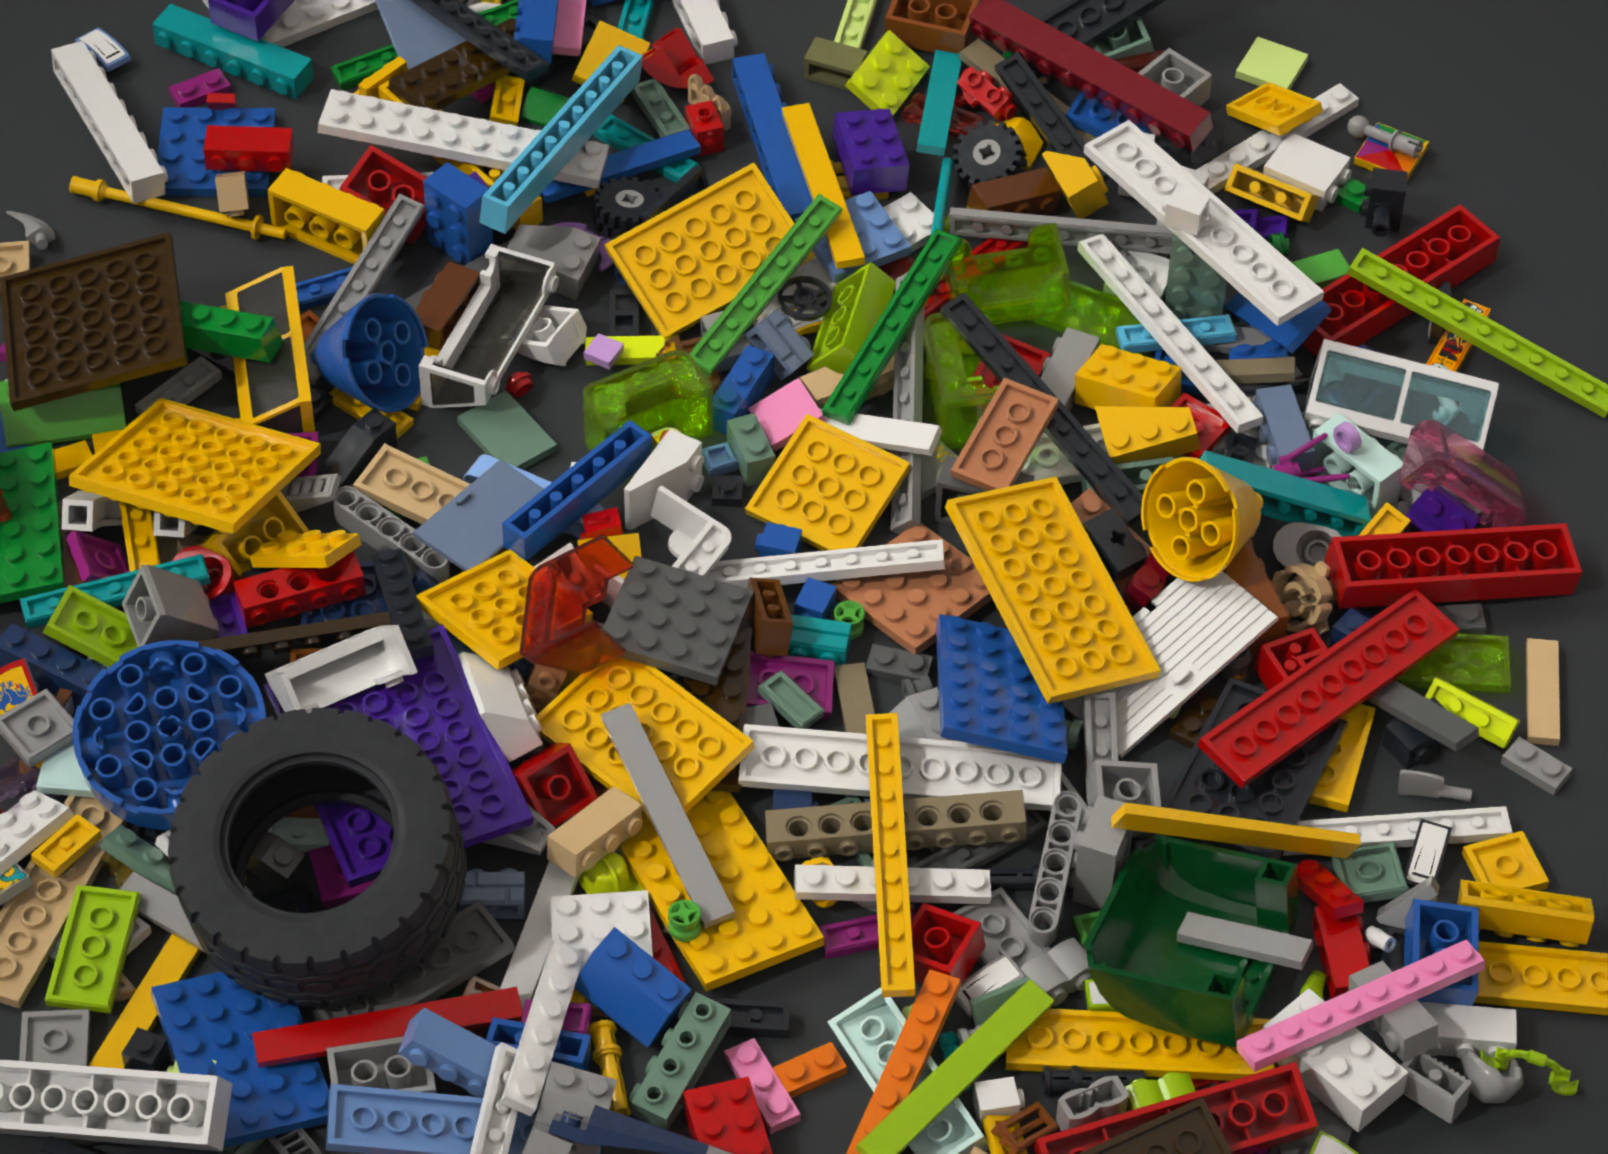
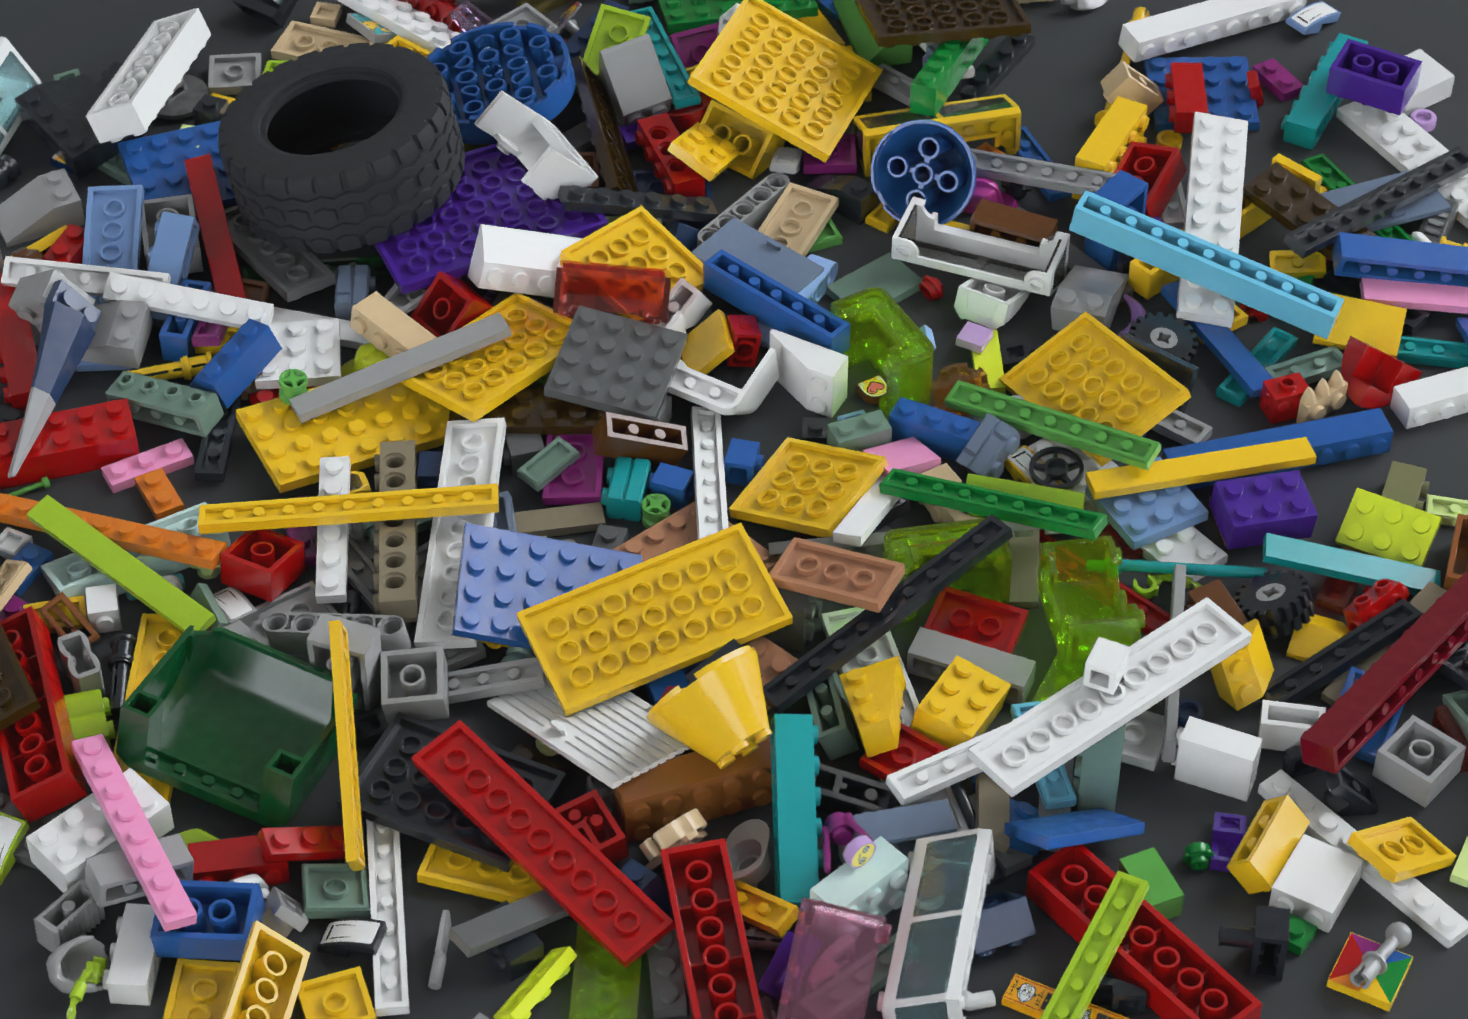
camera: 90 degrees right, 5 degrees down
(1245, 940) = (245, 778): light grey tile -> none

